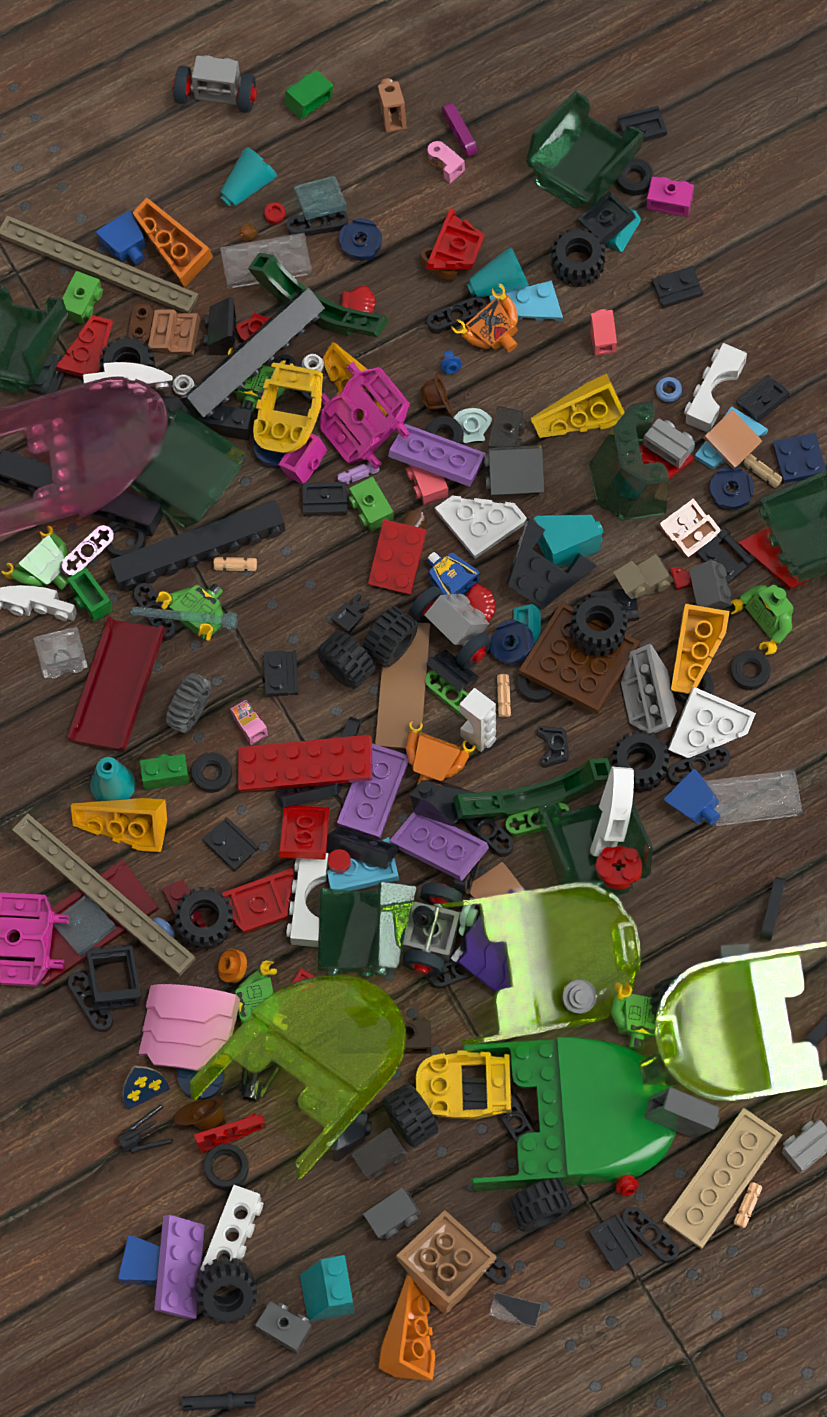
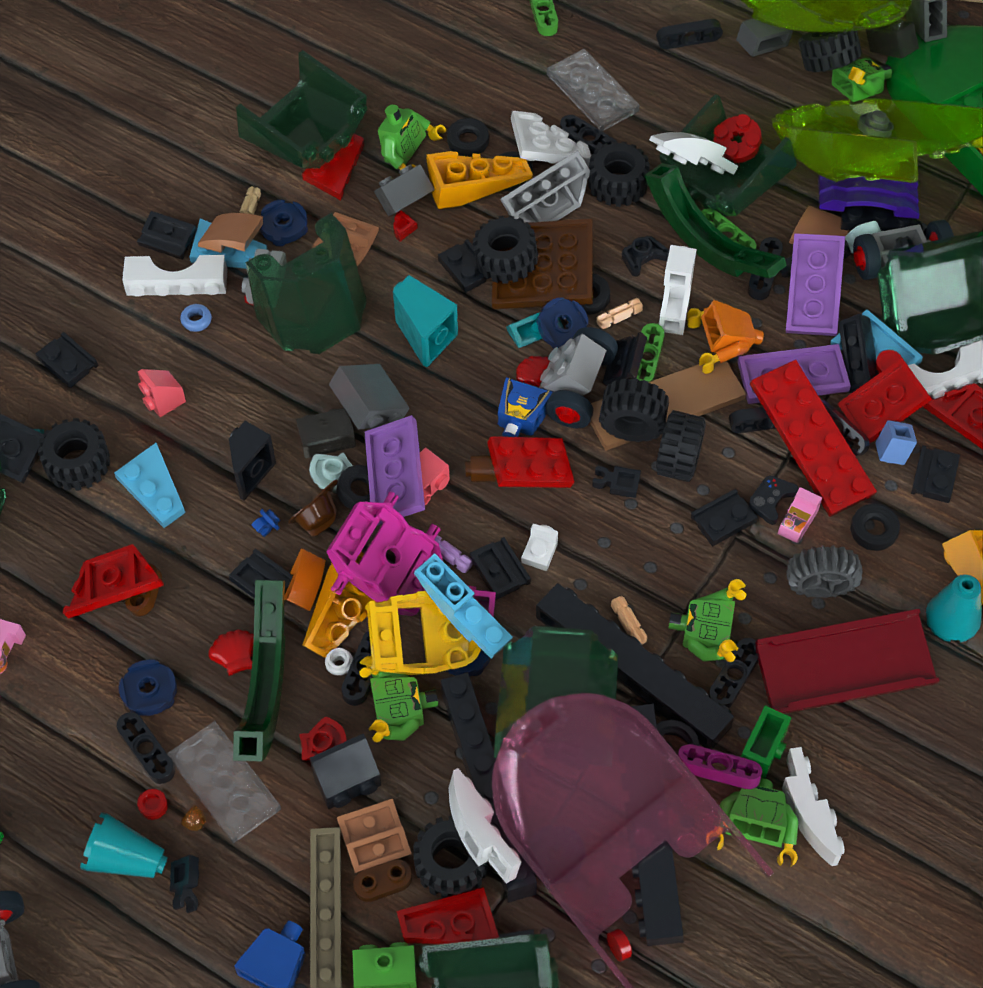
camera: 120 degrees left, 10 degrees down
(13, 439) = (619, 944): none -> red tile
(60, 652) = (852, 736): clear slope -> none
(164, 771) = (909, 564): green brick -> none
(174, 243) = (256, 888): orange wedge -> none
(180, 380) = (434, 781): white plate -> none
(208, 209) = (183, 878): none -> black plate
(227, 620) = (708, 576): clear light blue piece -> none
(252, 353) = (374, 701): brick -> none
(266, 821) = (896, 442): none -> medium blue brick
(277, 709) = (768, 496): none -> black piece
(286, 435) = (460, 607): none -> medium azure slope
(320, 197) = (110, 757): clear light blue tile -> none
(326, 534) = (540, 547): none -> white bracket
(370, 503) = (482, 518): bright green brick -> none
(391, 366) = (306, 580): none -> orange slope
(405, 342) = (257, 568): none -> black plate
(435, 801) = (768, 303): black slope -> none
(440, 315) = (204, 557): black beam -> none
(480, 522) = (443, 412): white plate -> none
(493, 324) = (200, 495): orange torso -> none
(501, 270) = (133, 515): teal cone -> none
(505, 365) = (251, 457): none -> black slope
(538, 577) = (473, 322): black wing -> none
(583, 409) = (249, 368): yellow wedge -> none
(645, 578) = (422, 244): dark tan brick -> none
(694, 799) = (629, 118): blue torso -> none
(715, 552) = (366, 204): black plate -> none
(798, 457) = (218, 186): dark blue plate -> none

